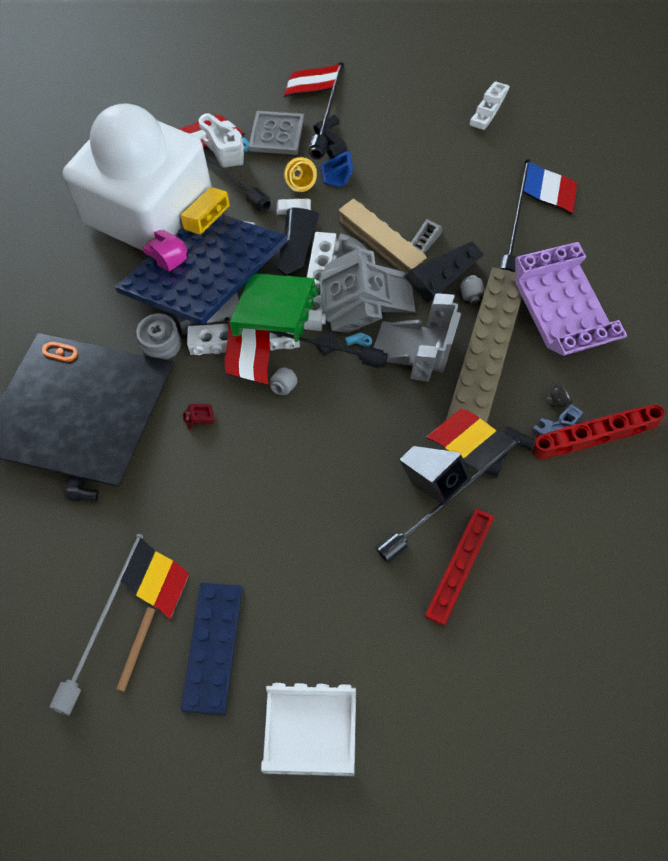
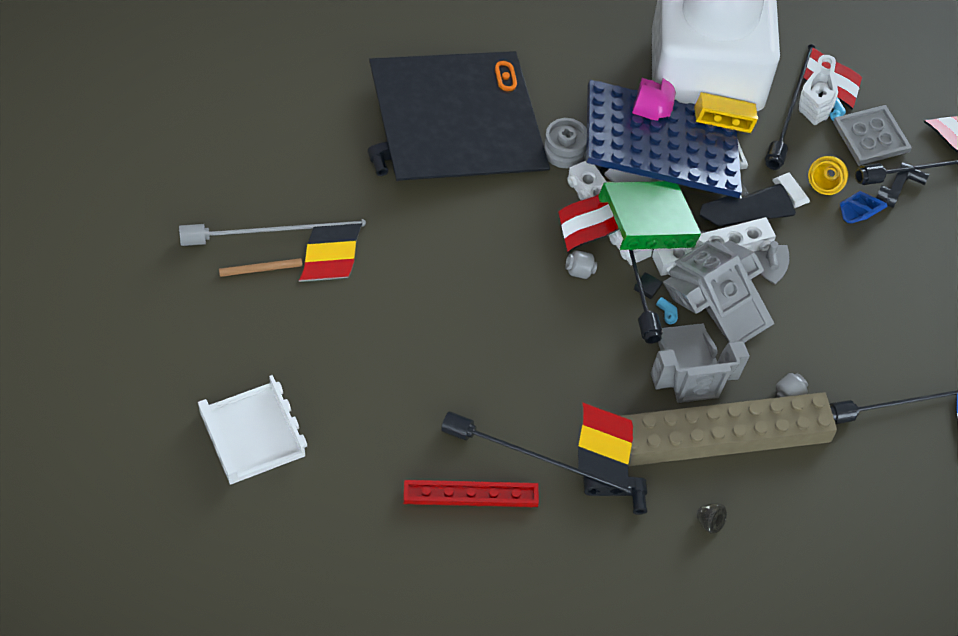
camera: 55 degrees right, 5 degrees down
(198, 415) = (506, 212): dark red bracket -> none
(212, 649) = (290, 324): dark blue plate -> none
(380, 236) = (801, 282): tan brick -> none
(428, 225) = (837, 316): light grey slope -> none
(436, 472) = (548, 426): black slope -> none
(440, 272) = (795, 351): black wedge -> none
(564, 300) = (827, 476): lavender slope -> none
(571, 413) = (670, 523): sand blue piece -> none
(598, 431) = (692, 570): red beam -> none

